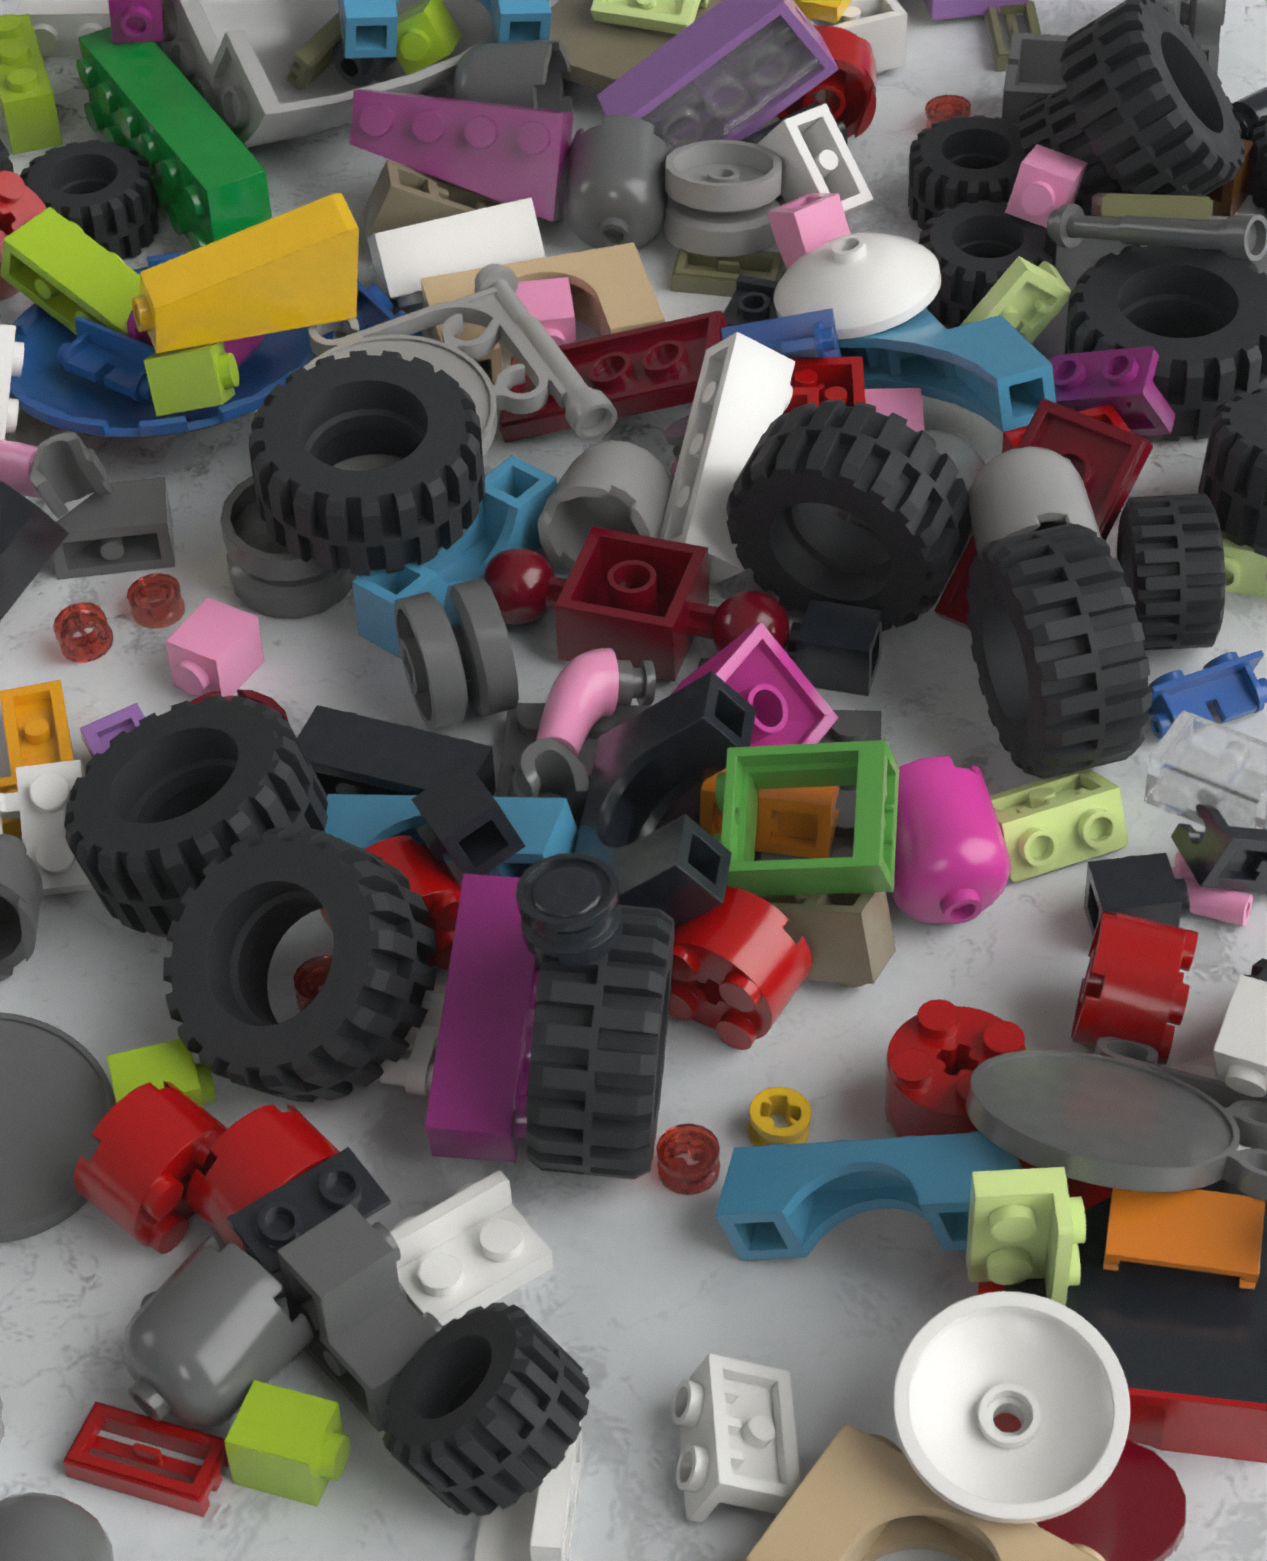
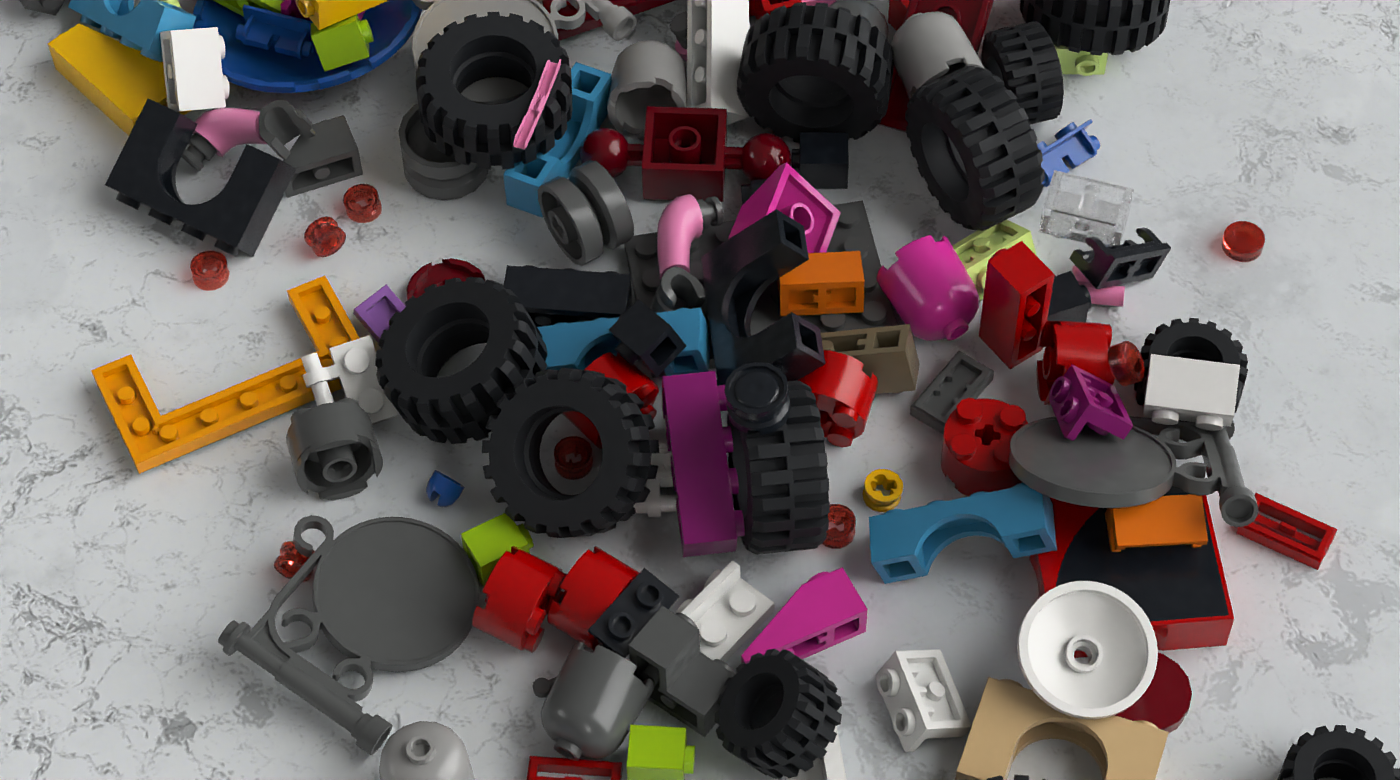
camera: 15 degrees left, 10 degrees up
(116, 996) = (445, 487): none -> blue hinge
(215, 649) = (419, 234): bright pink brick -> none
(408, 478) = (537, 105): none -> bright pink piece
(603, 1284) = (814, 618): none -> dark pink slope
(811, 765) = (852, 260): bright green window -> none
(950, 975) = (957, 381): none -> dark grey plate
(1025, 1229) = (1070, 540): yellowish green bracket -> none
(1056, 877) = (1015, 304): none -> red brick
(1131, 1031) = (1086, 399): none -> magenta bracket
(1205, 990) = (1126, 363): none -> clear red tile

